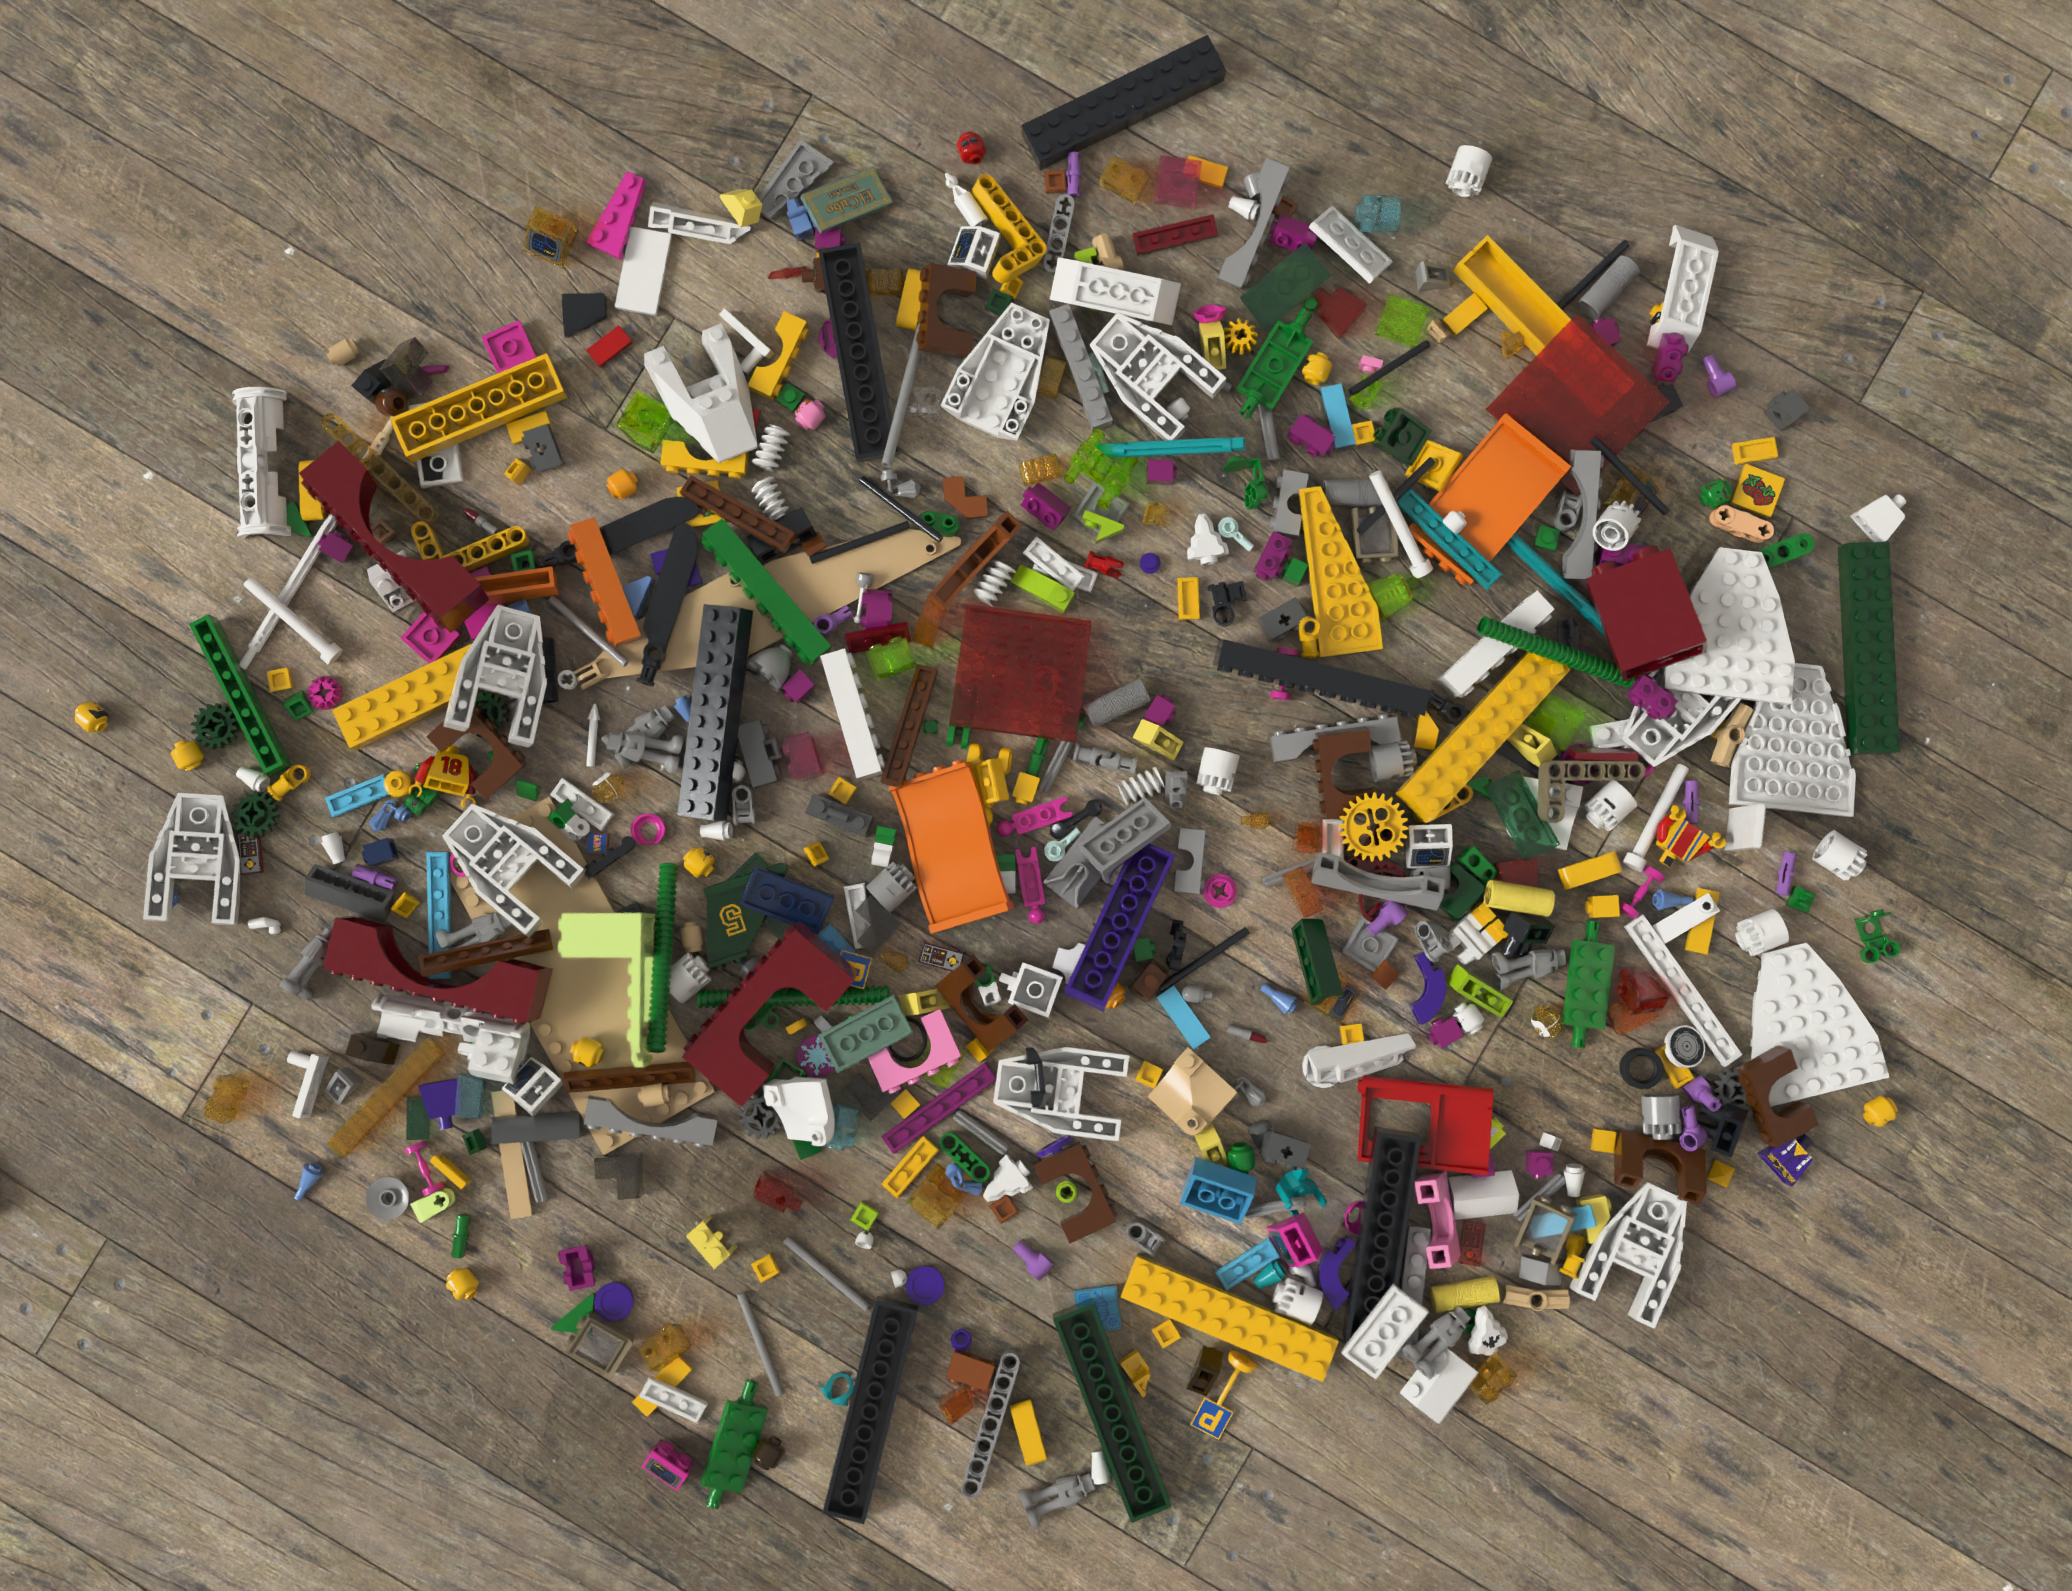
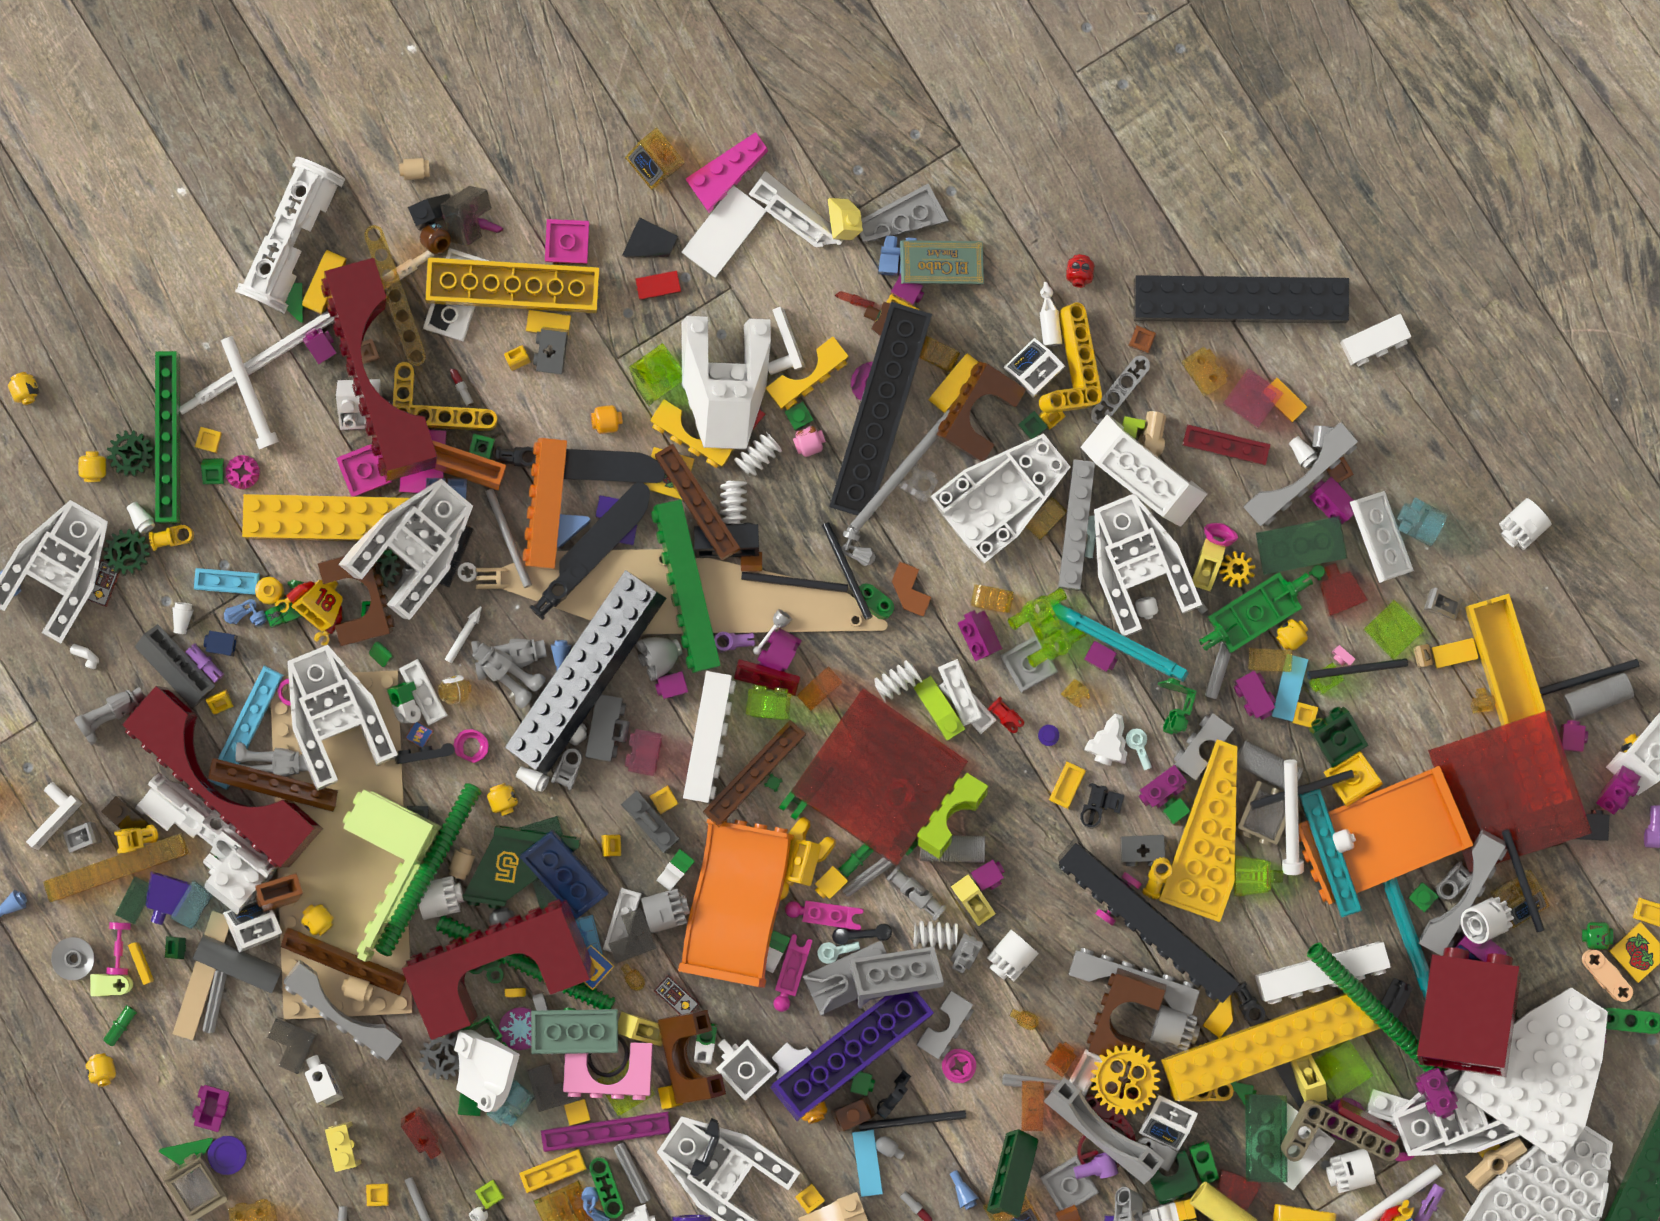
camera: 30 degrees right, 0 degrees up
(386, 1064) = (134, 838): none -> yellow connector
(538, 1045) = (278, 892): none -> dark orange torso
(665, 1194) = (326, 1090): none -> white torso
(974, 560) = (889, 652): dark orange arch -> none
(1074, 174) = (1162, 342): medium lavender pin -> none
(1105, 649) = (967, 795): none -> lime arch
(1107, 527) = (1026, 685): lime slope -> none
(1258, 79) = (1376, 340): none -> white brick
(1309, 400) = (1270, 660): none -> clear yellow tile

